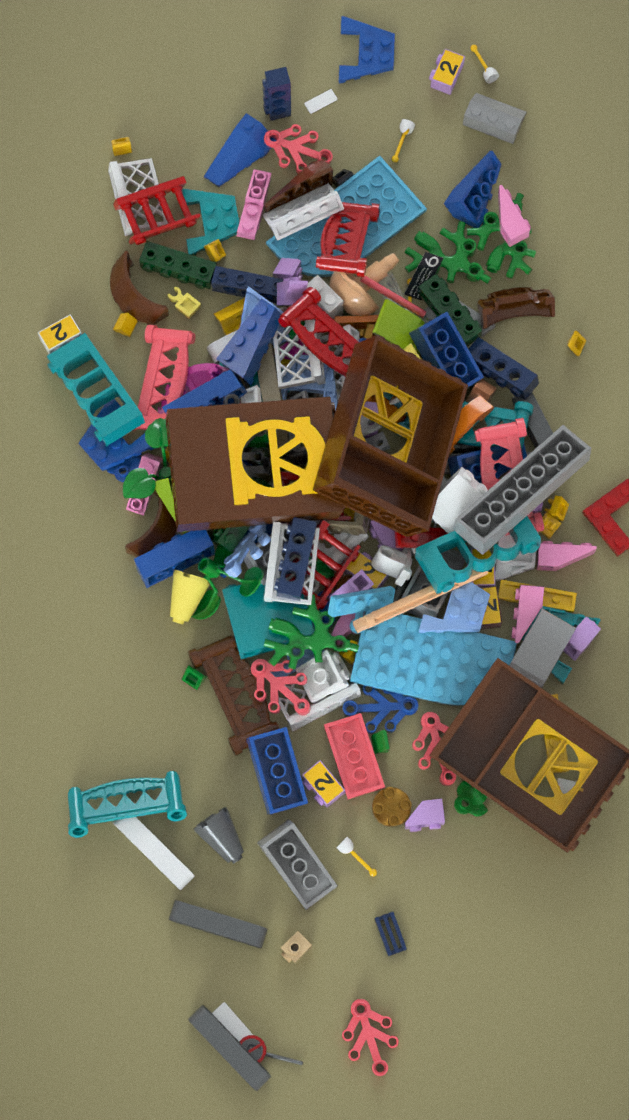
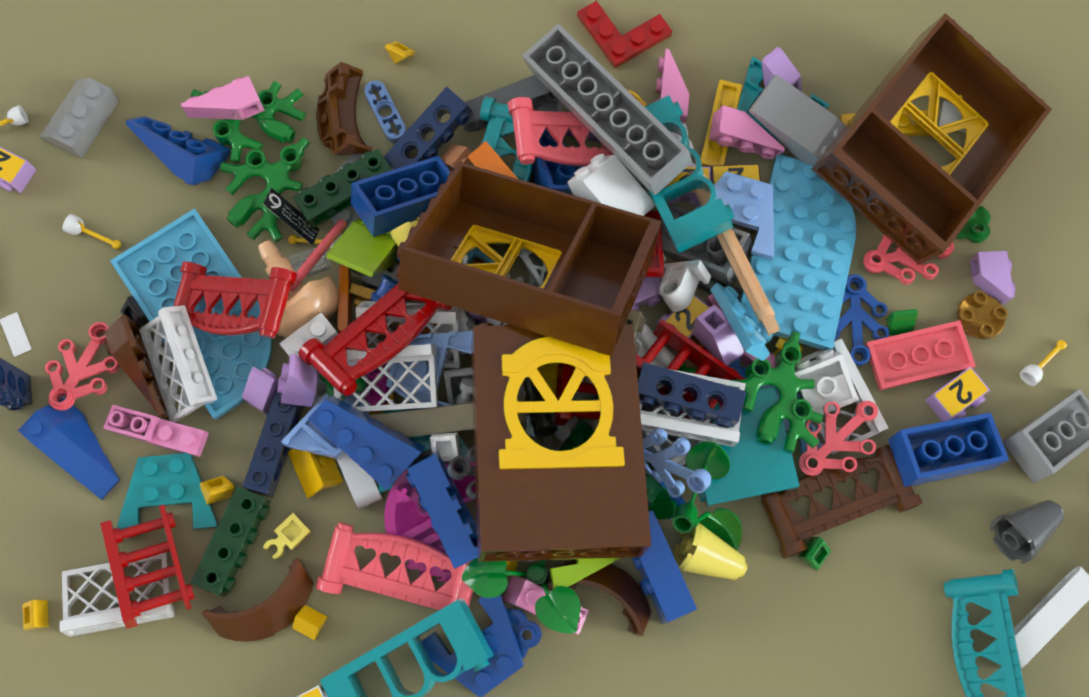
camera: 90 degrees left, 0 degrees up
(520, 345) = (376, 106): none -> medium blue beam

